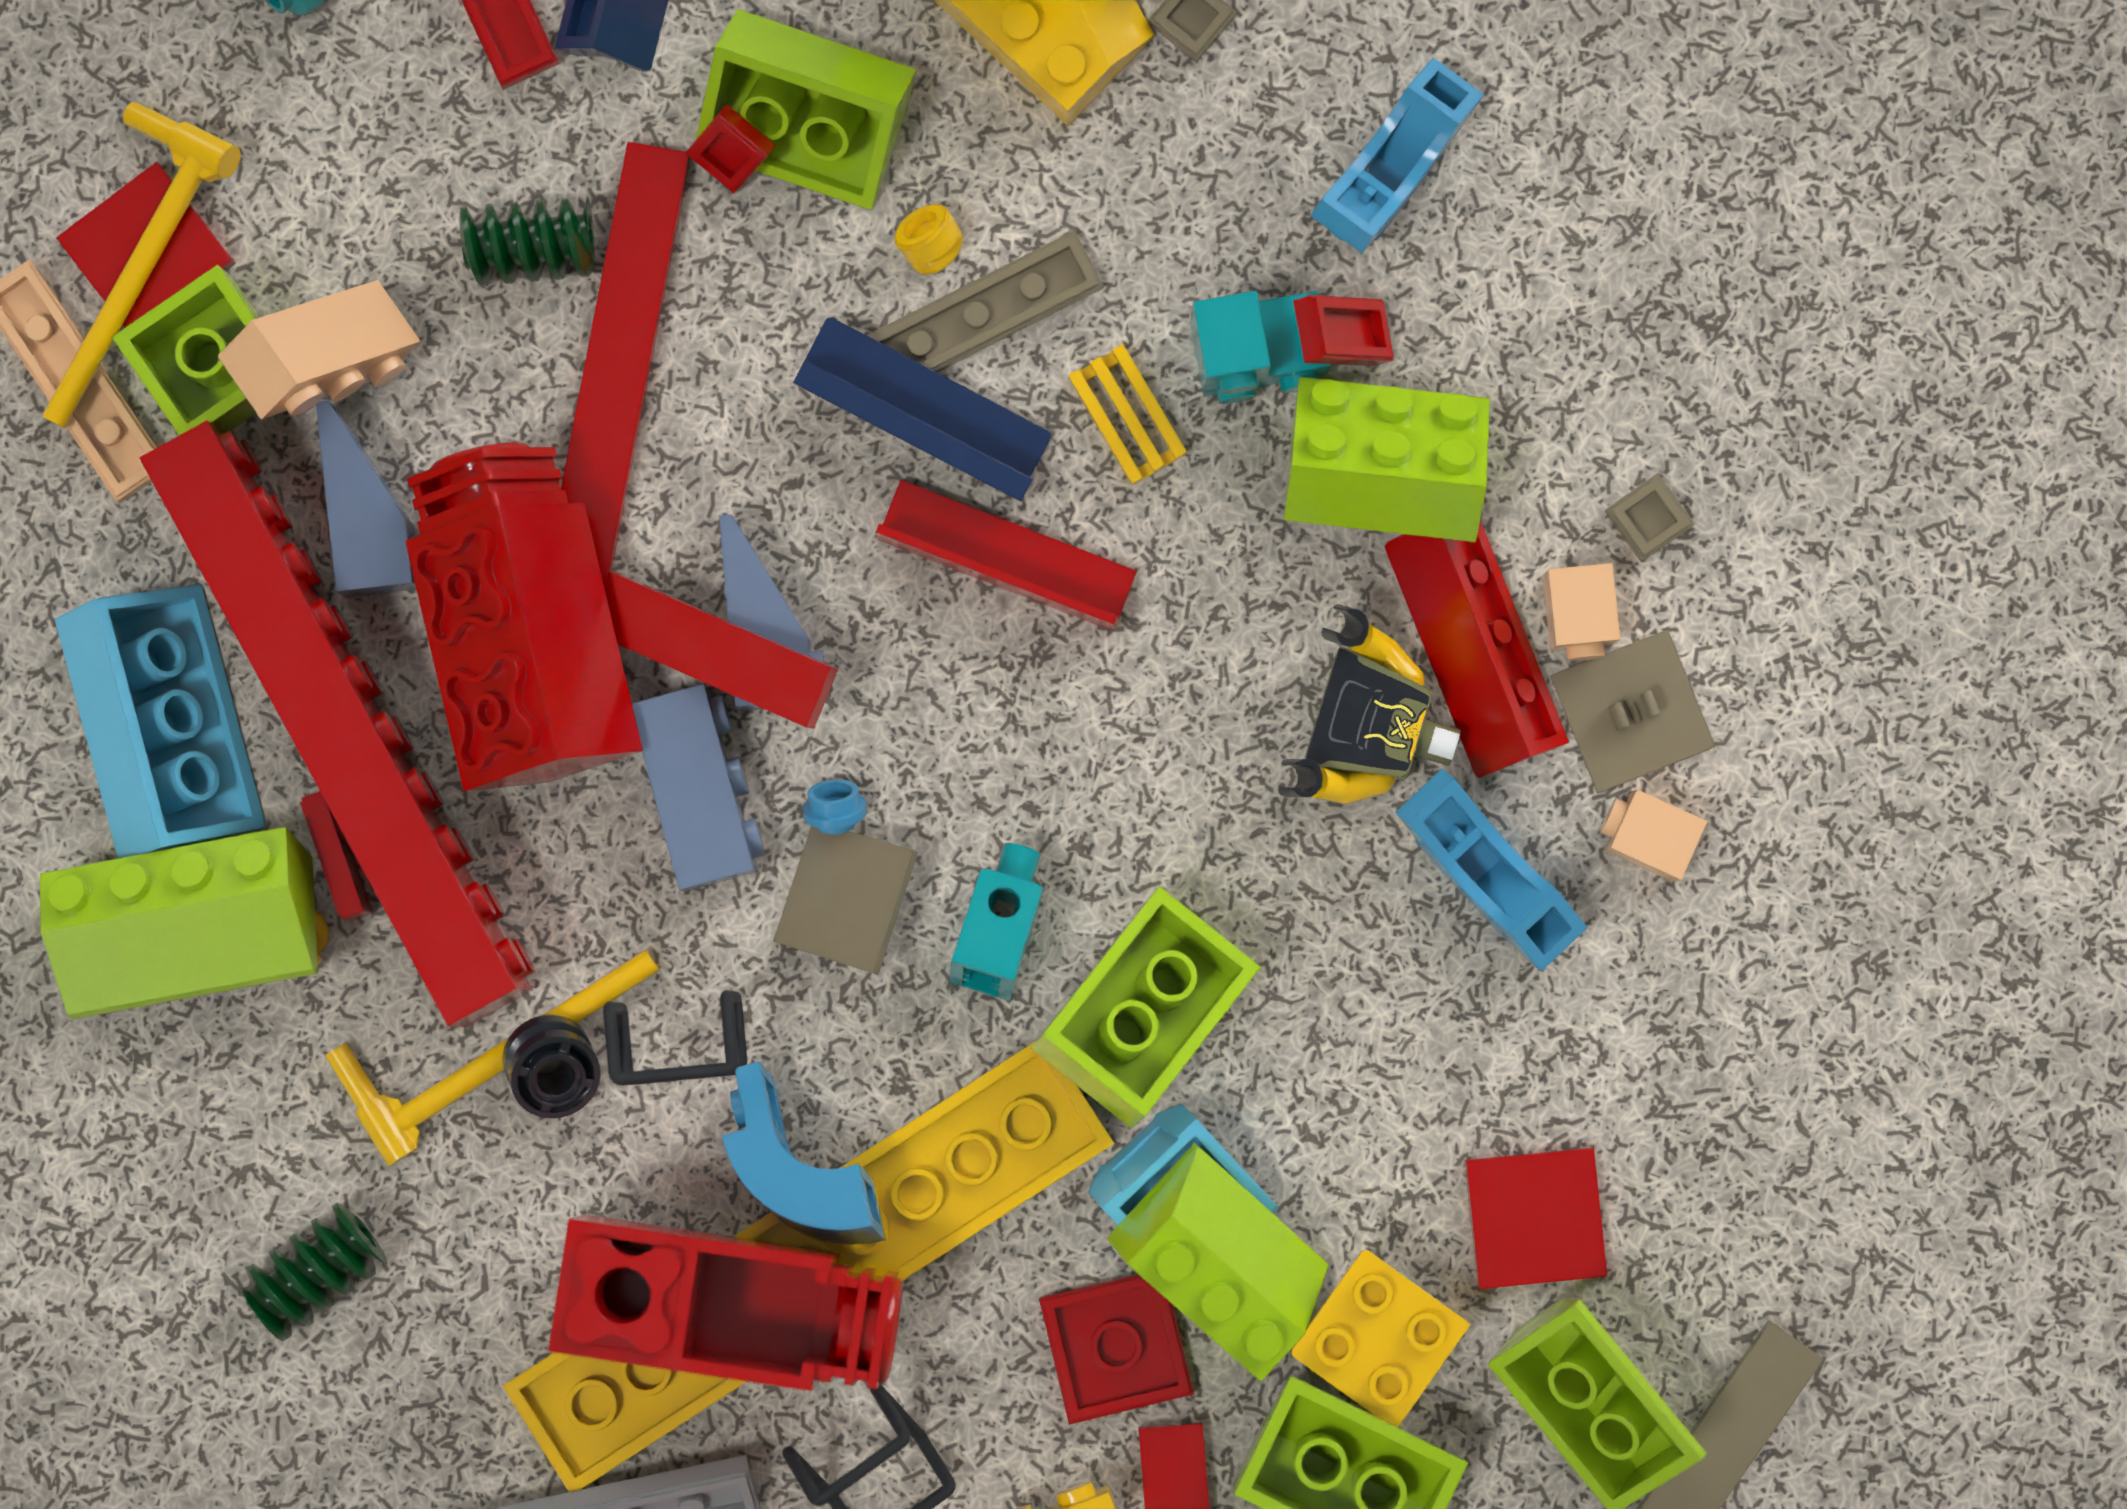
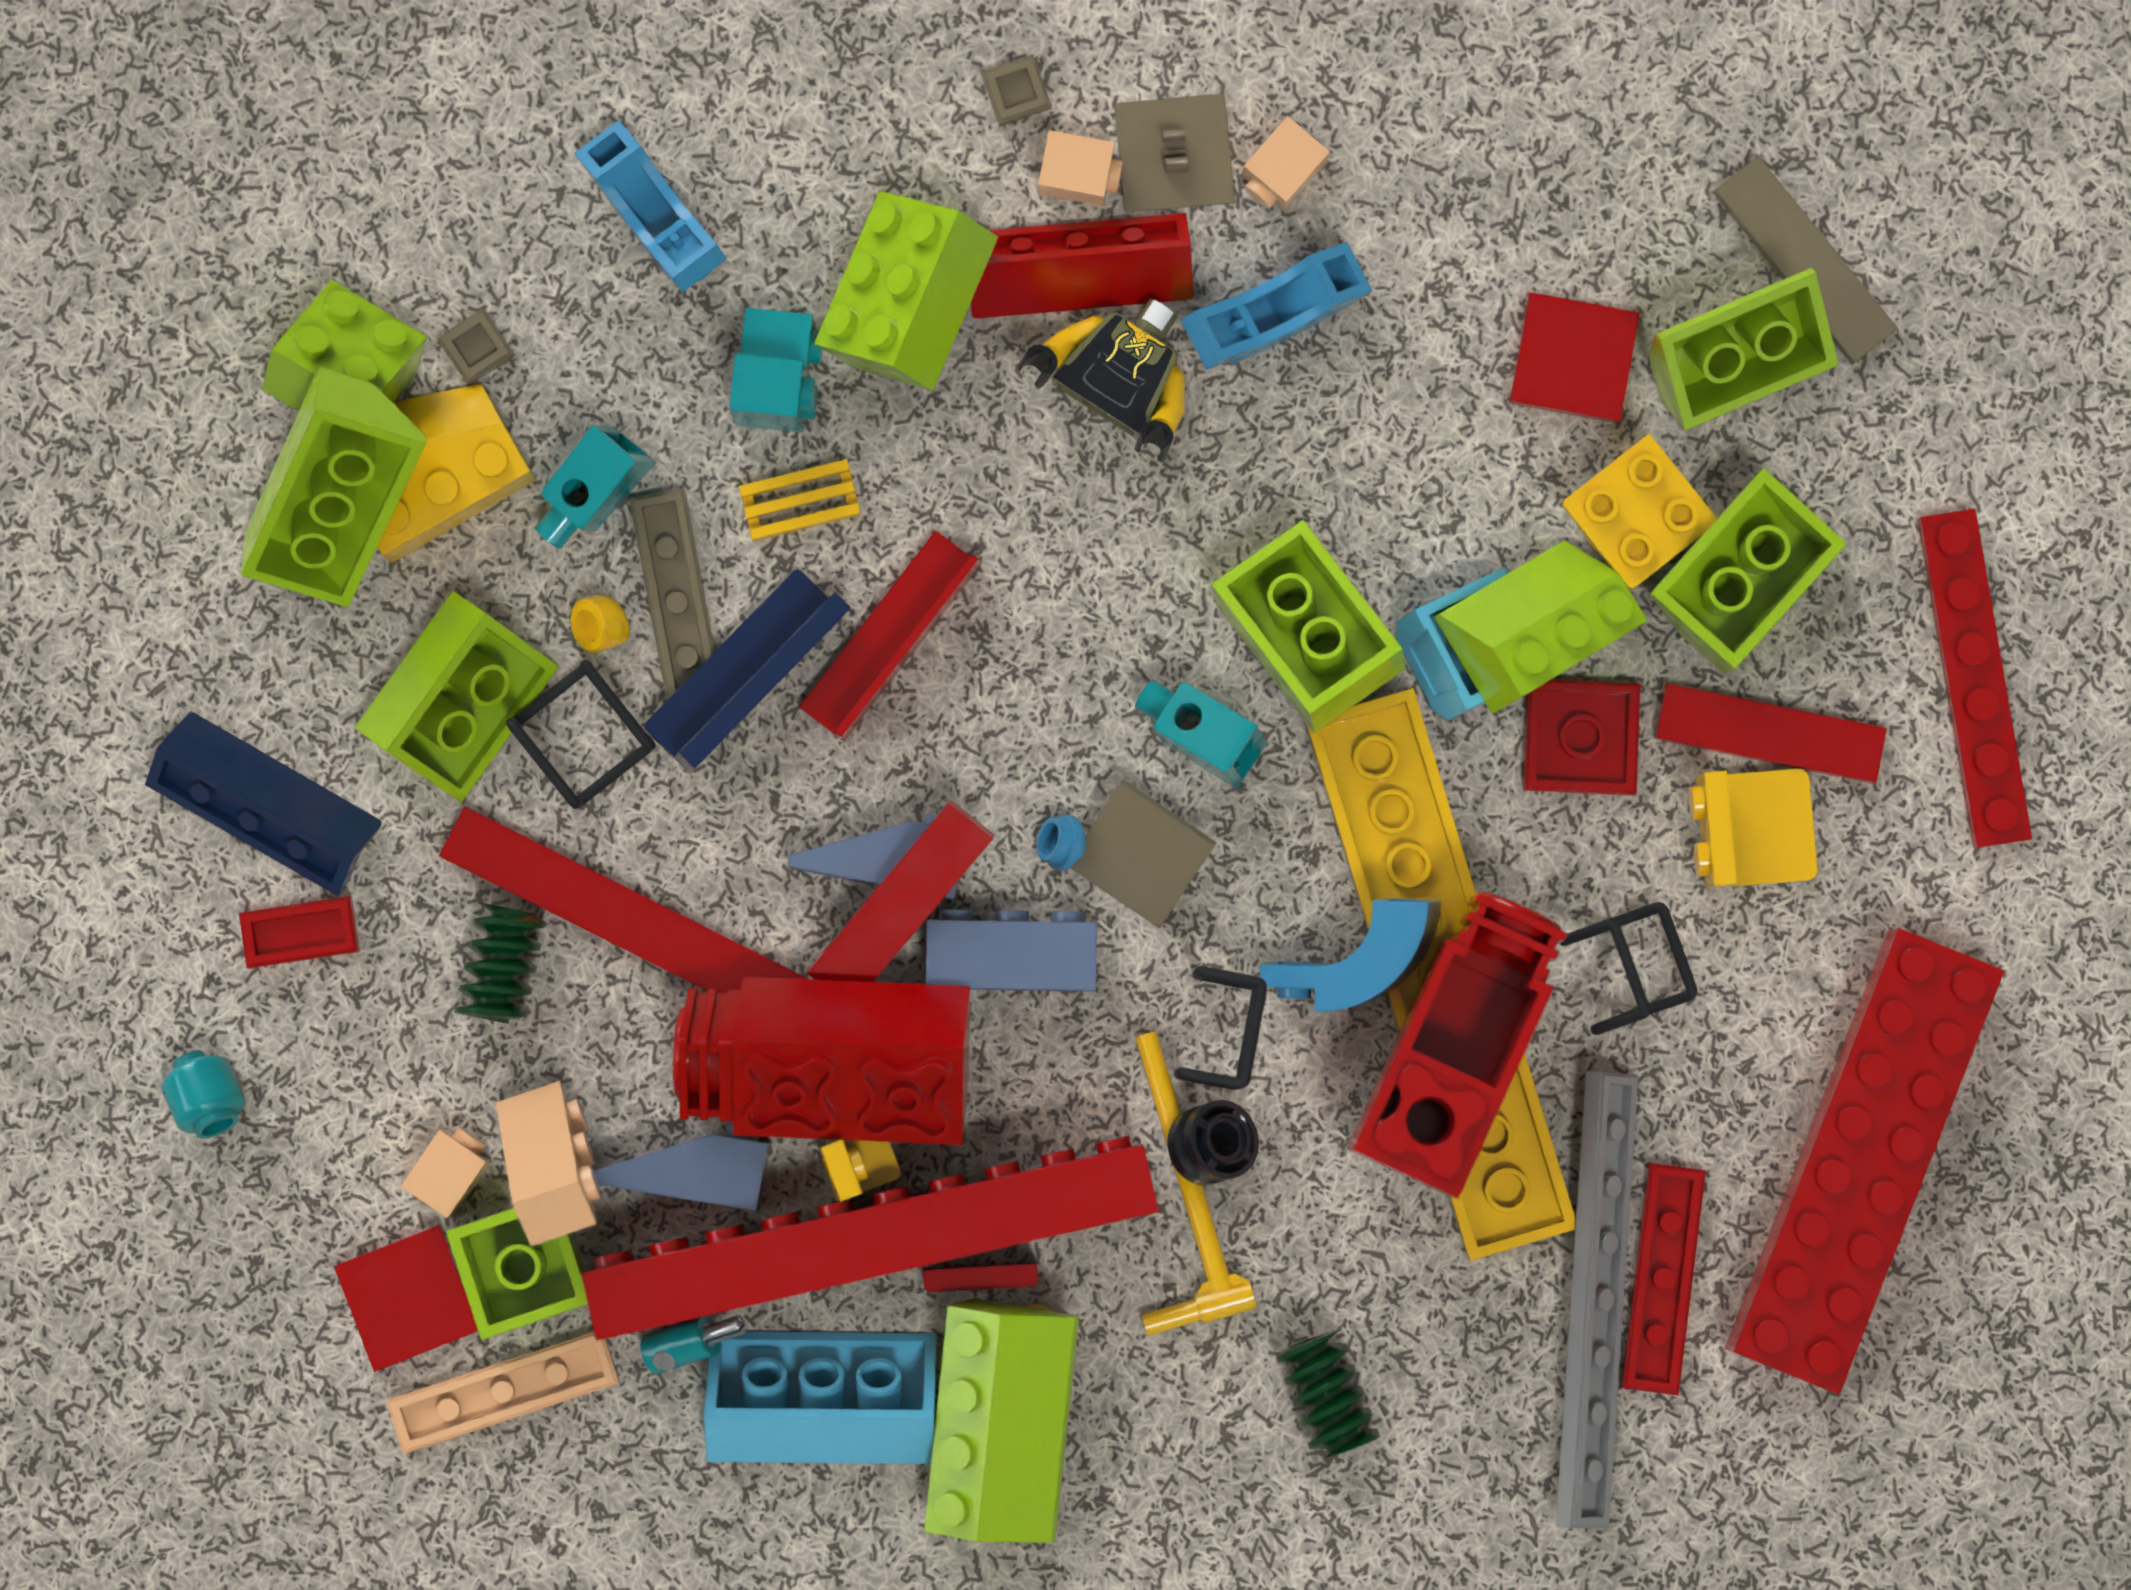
camera: 80 degrees left, 0 degrees up
(174, 562) = (687, 1342): none -> teal piece
(199, 158) = (343, 1227): yellow bar -> none
(290, 251) = (448, 1171): none -> light nougat brick
(410, 686) = (858, 1166): none -> yellow slope
(730, 148) = (472, 769): red tile -> none
(869, 236) = (585, 668): none -> black piece
(1098, 193) = (610, 470): none -> teal torso
(1343, 330) = (785, 295): red tile -> none

